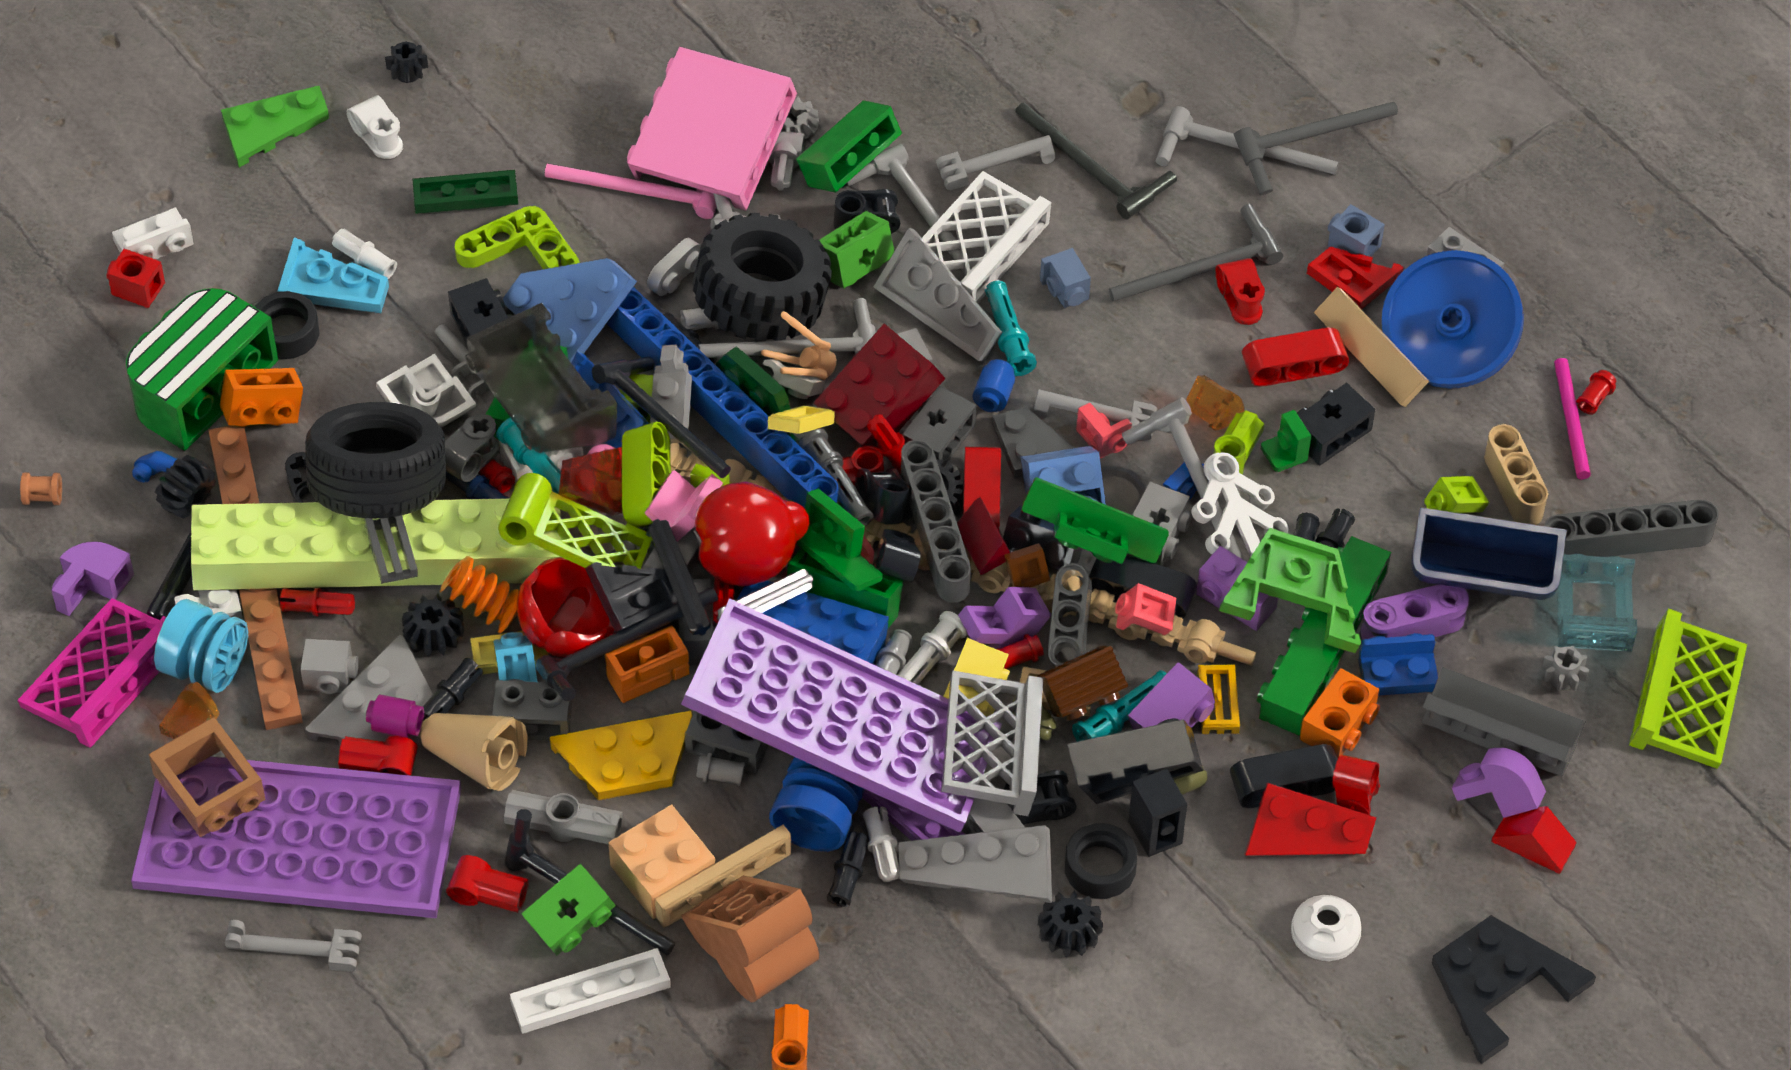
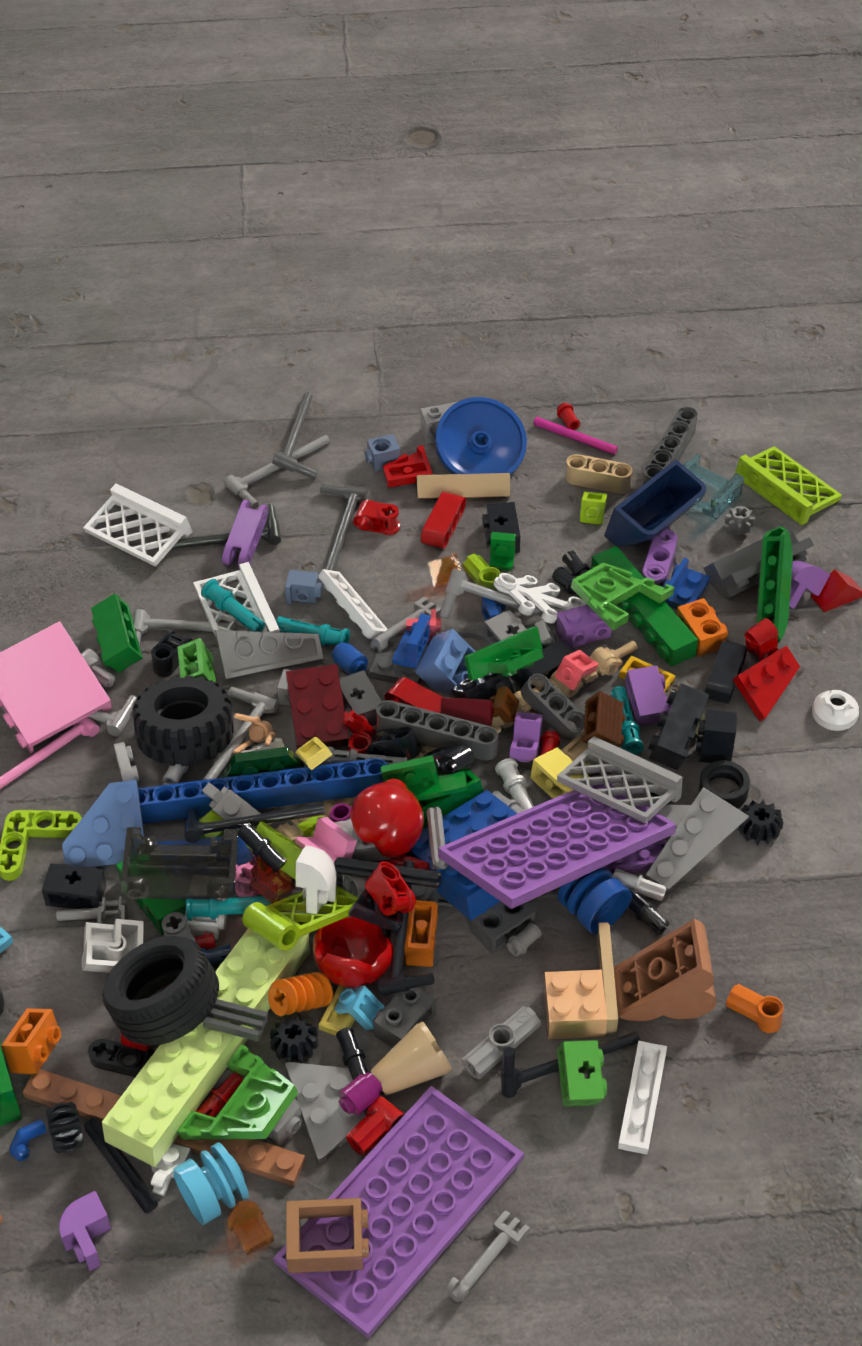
camera: 55 degrees left, 5 degrees down
(121, 683) = (194, 1258): dark pink fence -> none
(313, 628) = (251, 1109): none -> bright green wing
(477, 882) = (516, 1118): red piece -> none
(613, 510) = (317, 877): none -> white brick
(623, 442) = (261, 847): none -> black pin
(626, 755) = (473, 985): yellow wing -> none
(646, 595) = (387, 887): none -> red piece
(955, 171) = (177, 593): light grey hinge -> none
(970, 215) = (225, 601): none -> teal pin
(1055, 429) = (413, 643): none -> blue bracket
(1056, 72) = (151, 513): none -> white fence
(1082, 340) = (350, 600): none -> white plate
(1094, 175) = (245, 533): none -> medium lavender piece
(1188, 556) = (546, 634): none -> light grey plate
(1453, 751) = (775, 579): none -> green brick

